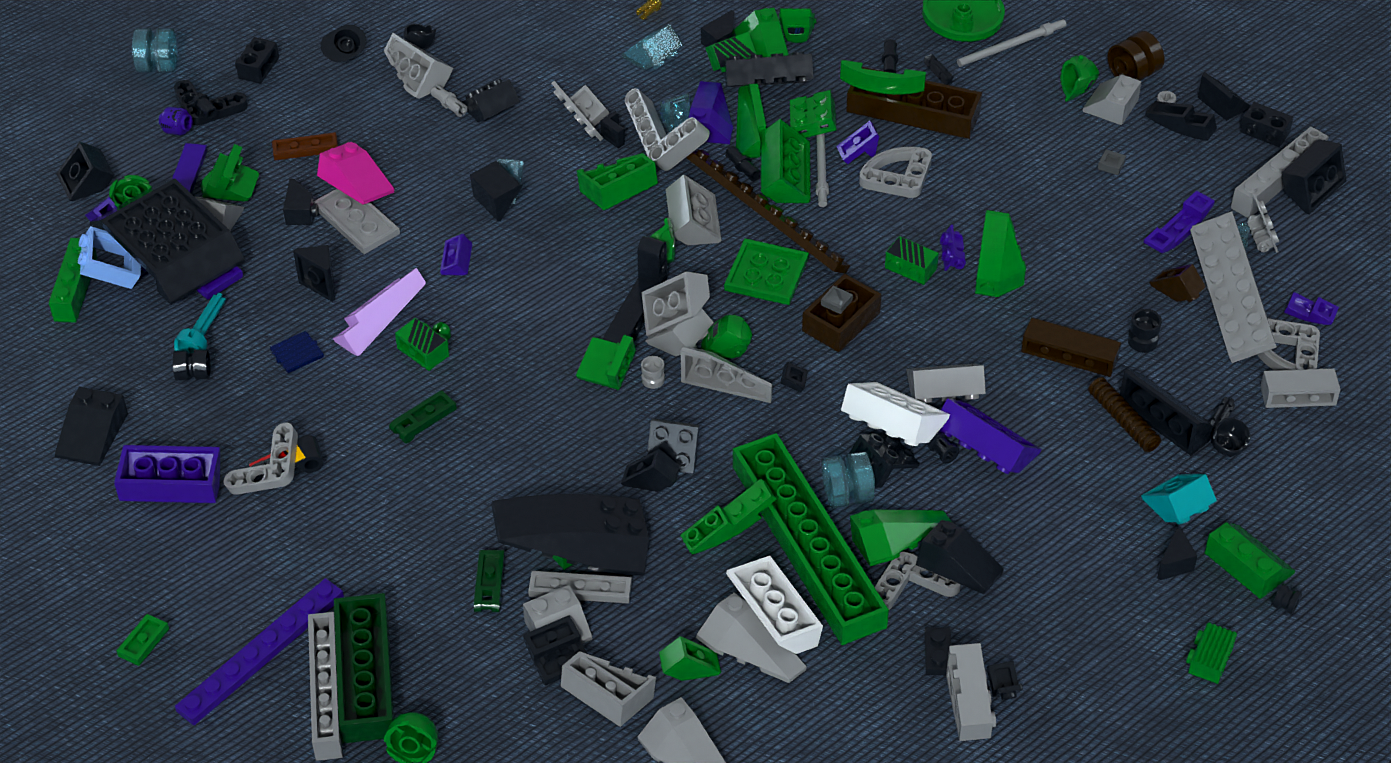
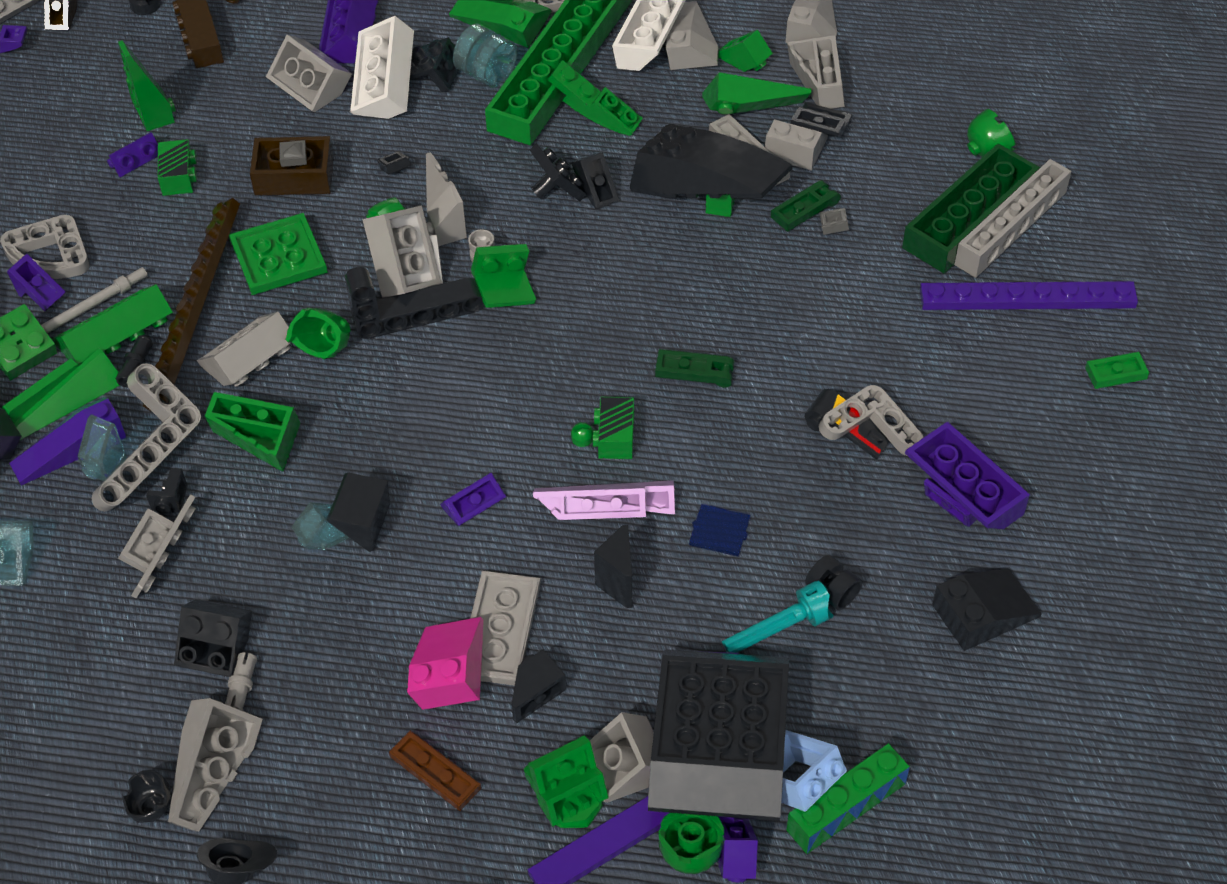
camera: 130 degrees left, 5 degrees up
(455, 586) = (834, 221): none -> dark grey tile
(633, 611) = (741, 94): none -> green wedge

